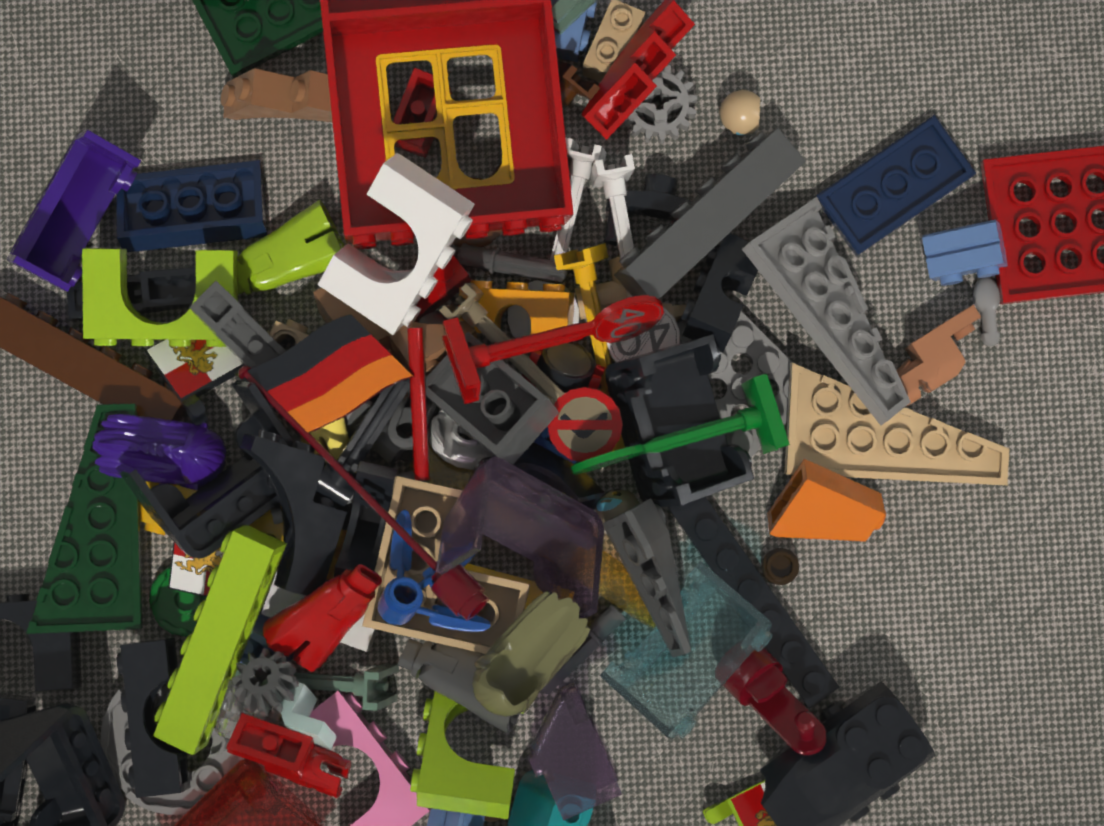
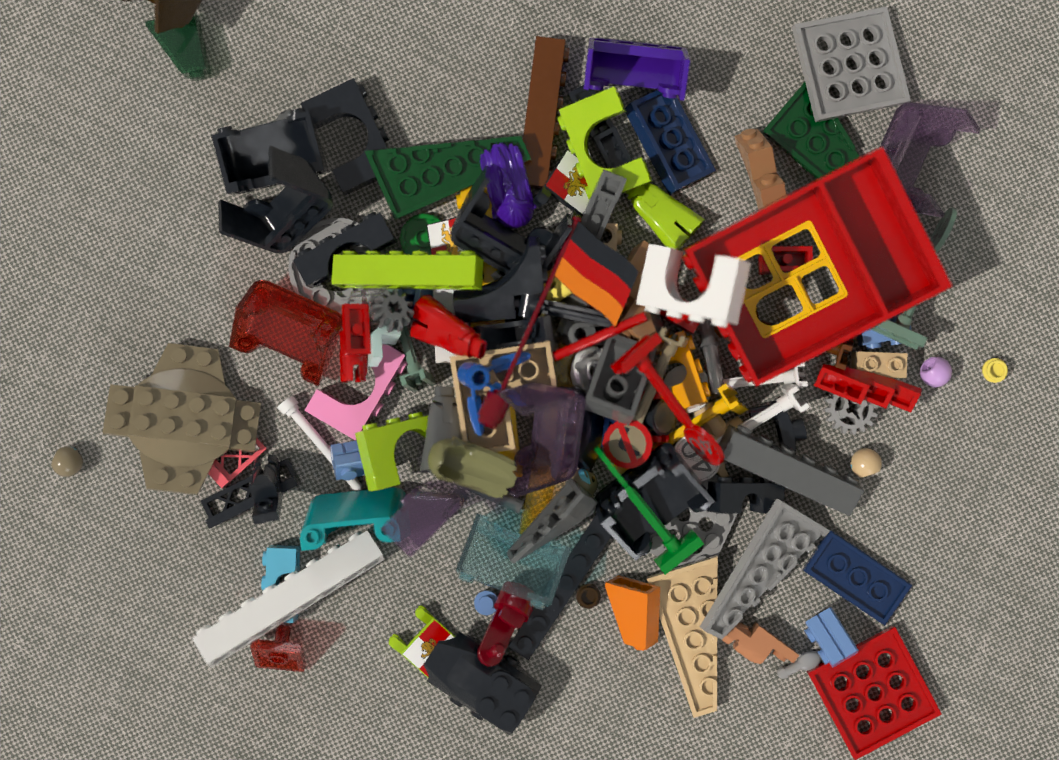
camera: 70 degrees right, 5 degrees up
(733, 716) = (485, 602): none -> medium blue plate

